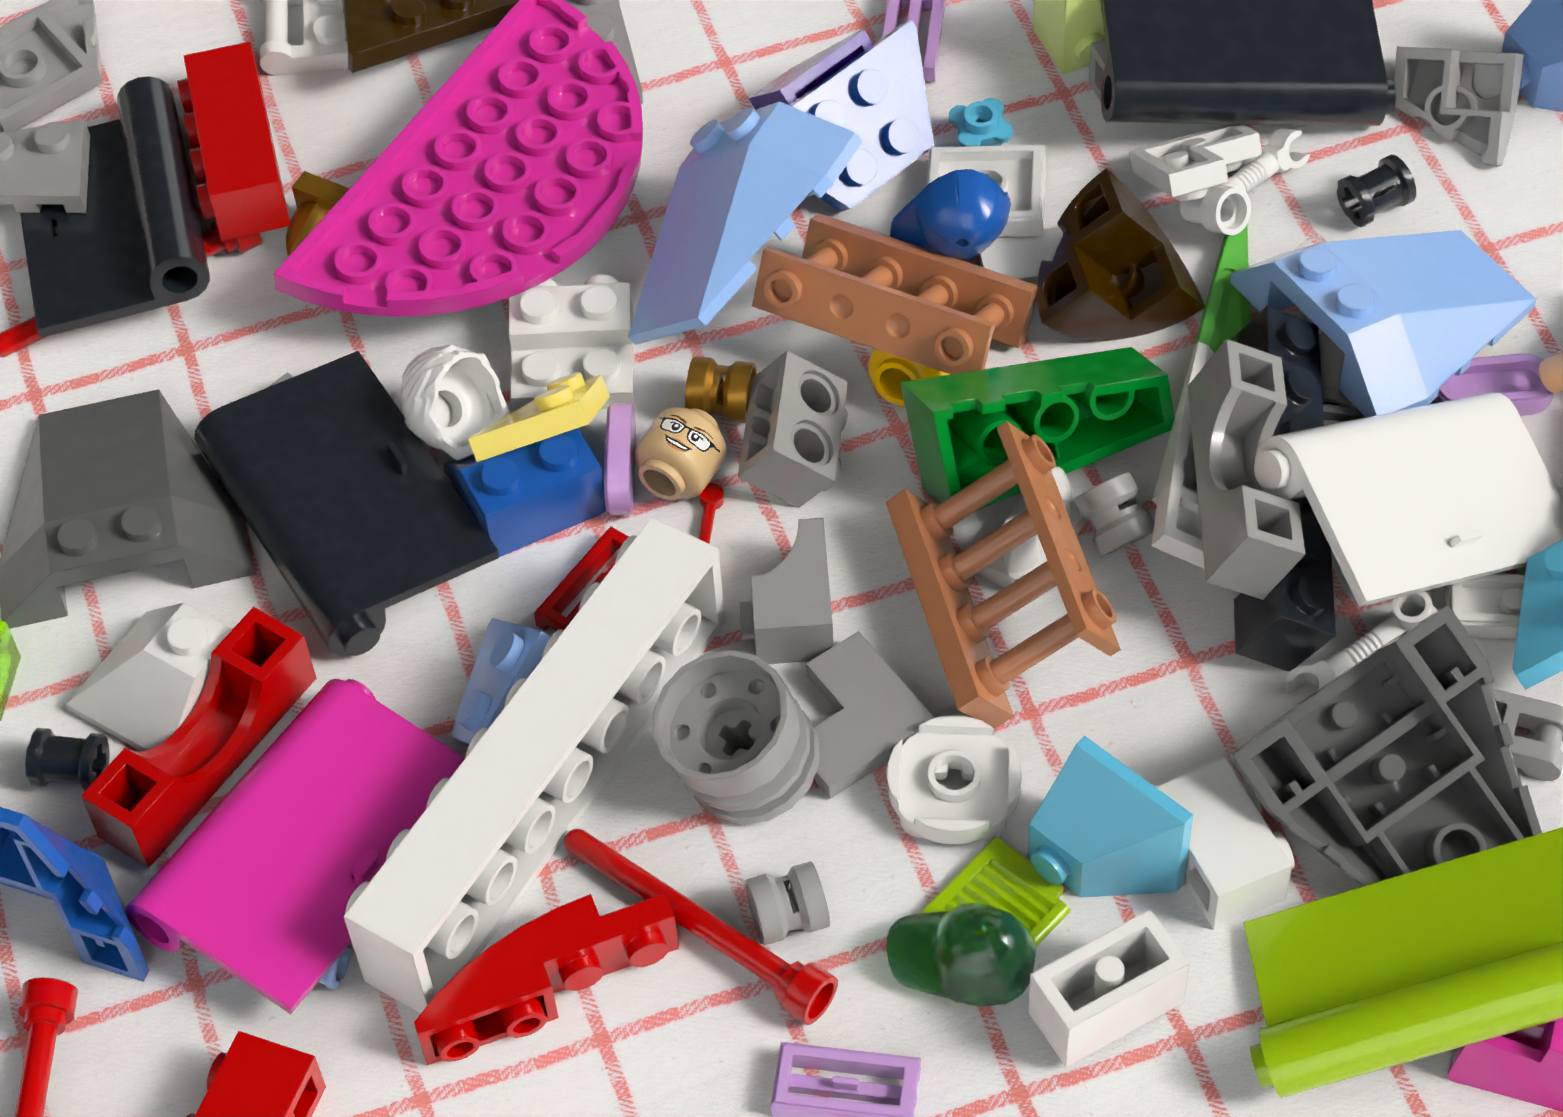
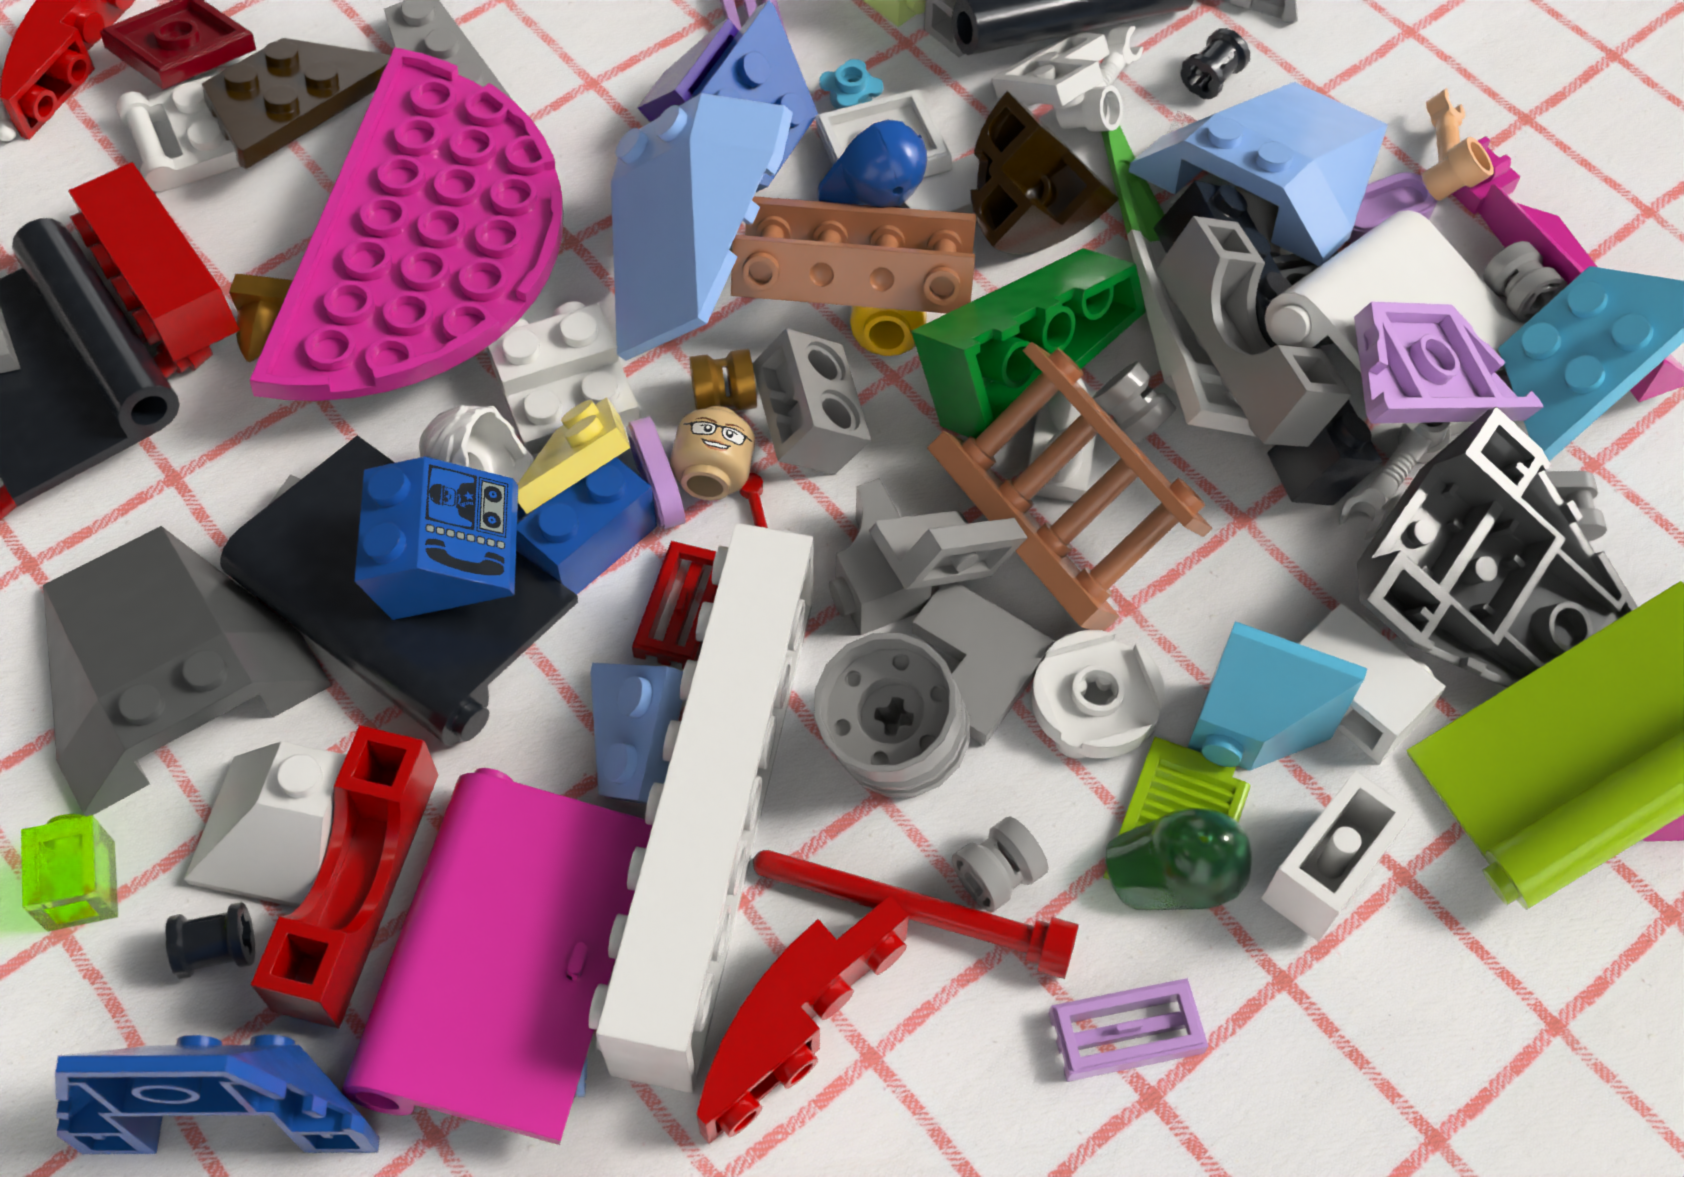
camera: 25 degrees left, 5 degrees up
(381, 457) = (435, 536): none -> blue slope
(855, 599) = (945, 547): none -> light grey panel
(1401, 550) = (1430, 367): none -> lavender wing

